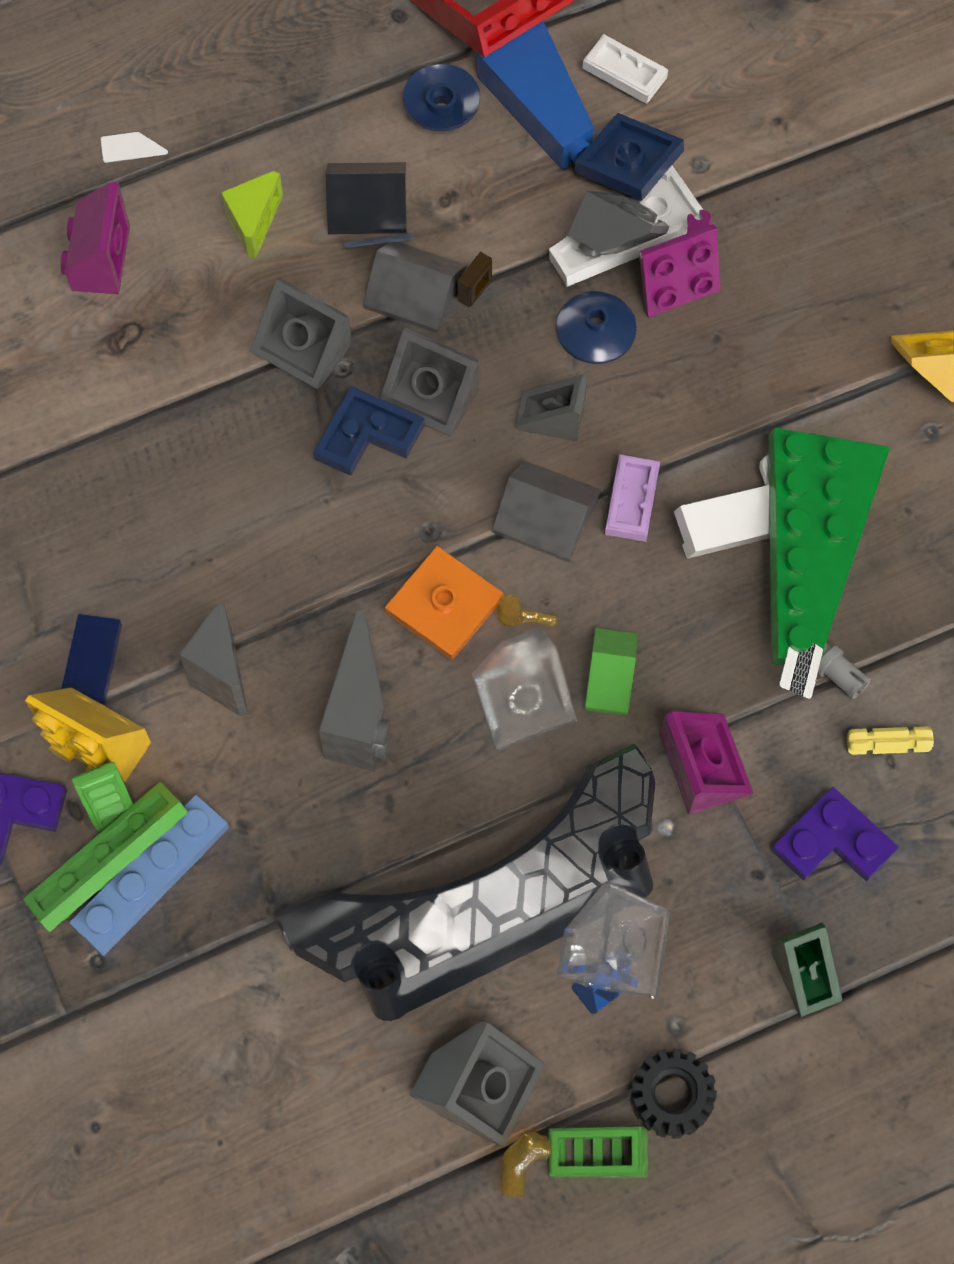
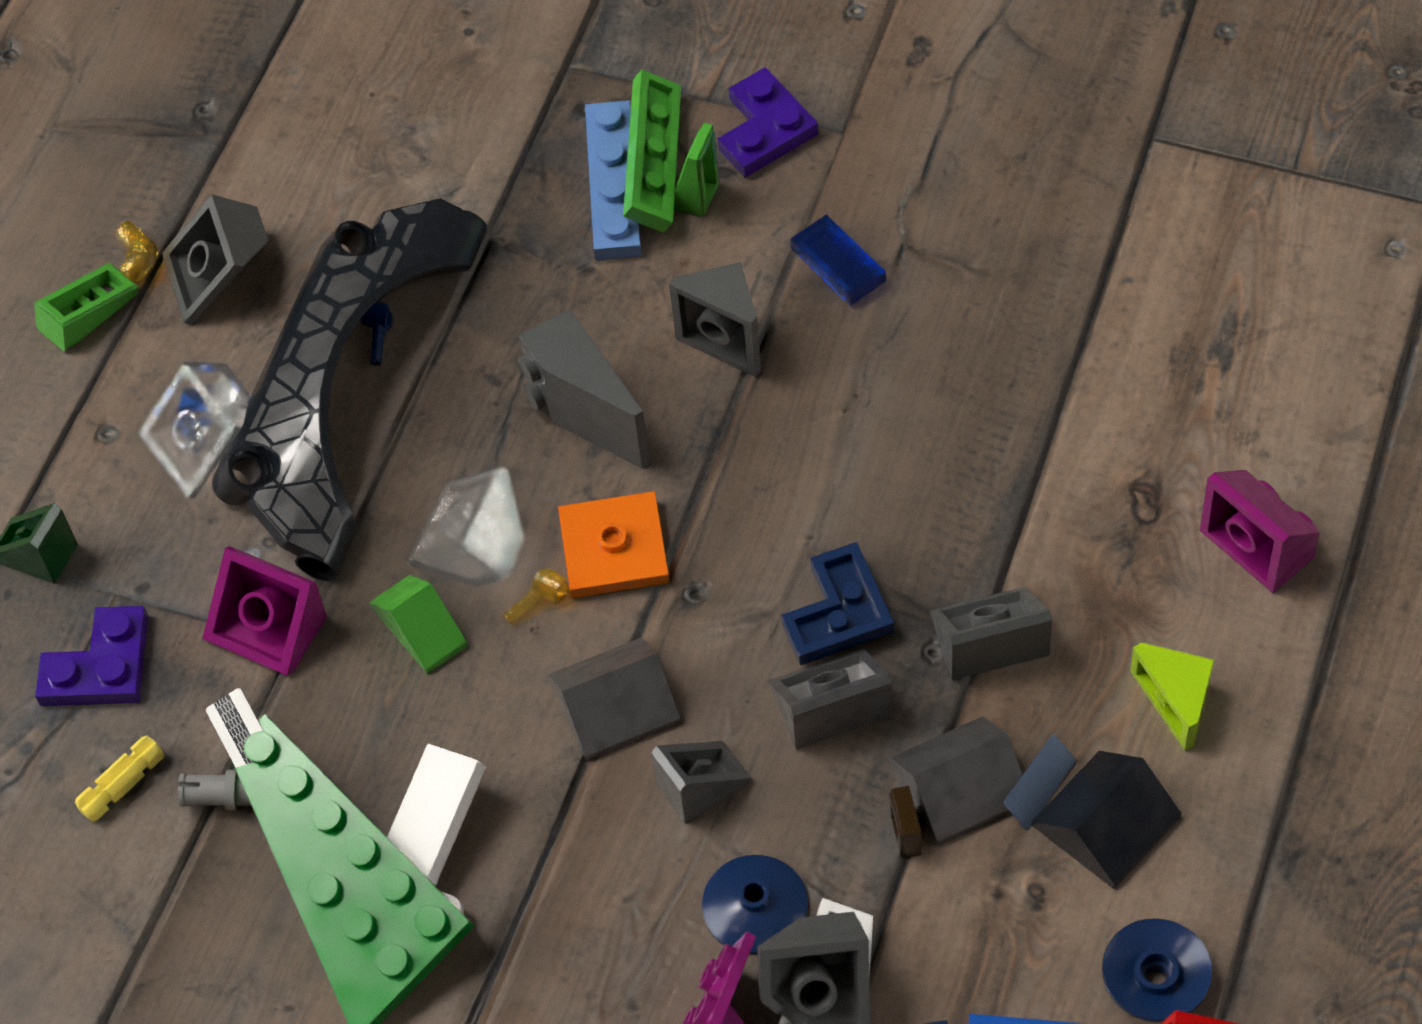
camera: 140 degrees right, 10 degrees down
(87, 730) = (755, 180): yellow slope -> none
(129, 147) = (1373, 657): white sticker -> none
(632, 498) = (546, 768): lavender plate -> none
(693, 1073) = (57, 357): black tyre -> none

